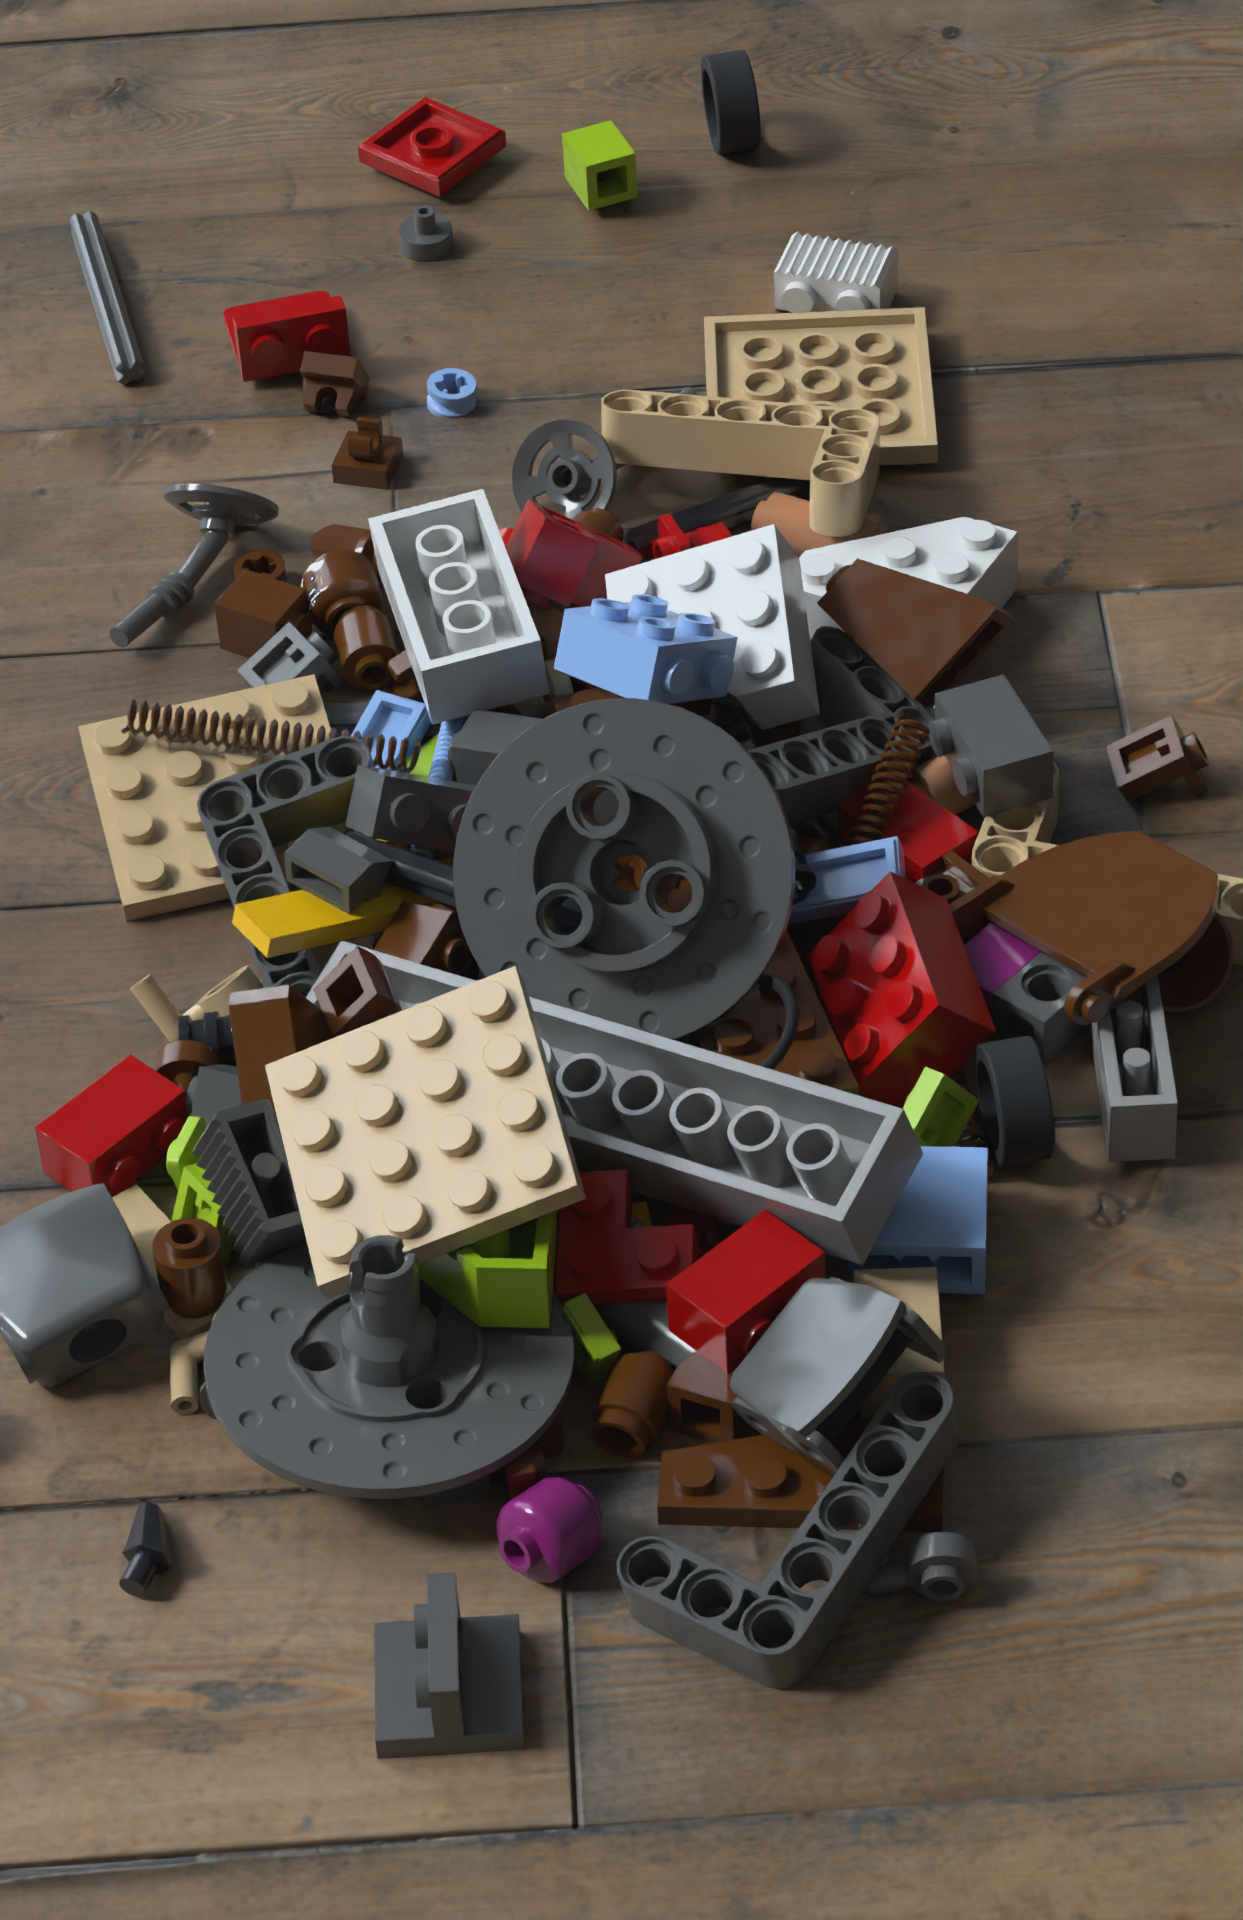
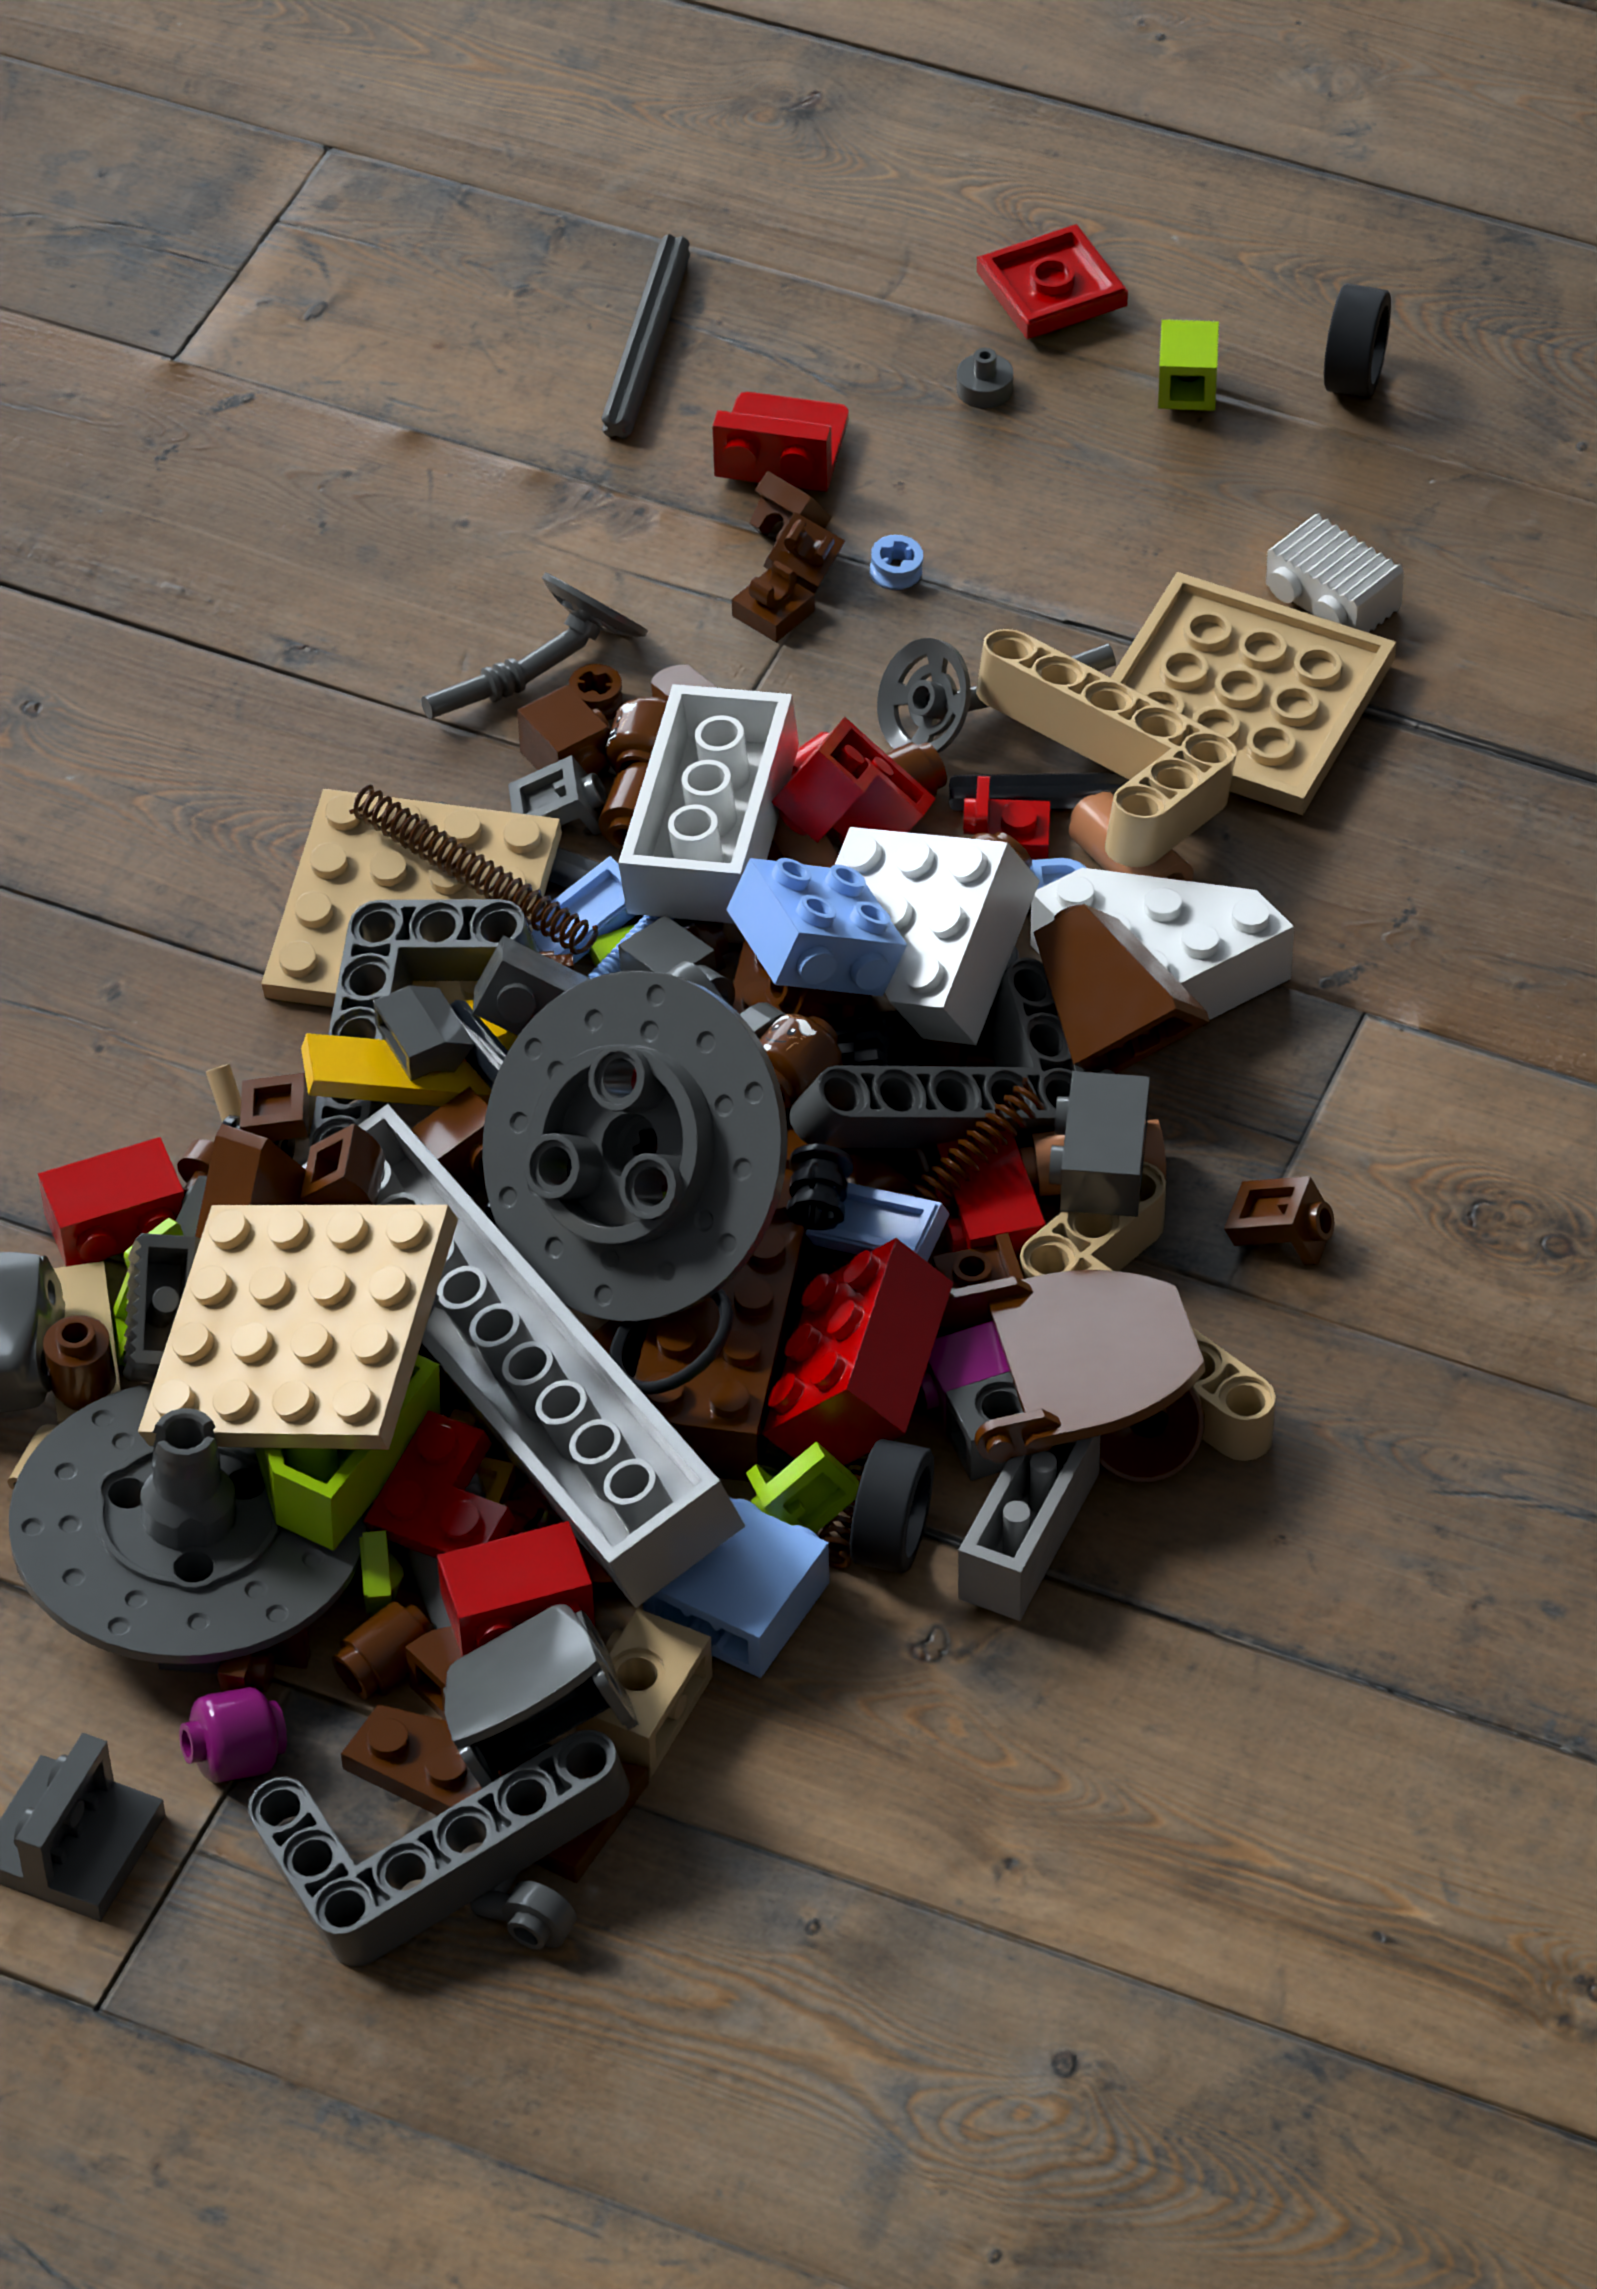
camera: 25 degrees right, 5 degrees up
(213, 982) = (276, 1107): none -> reddish brown tile
(372, 400) = (806, 550): none -> reddish brown tile

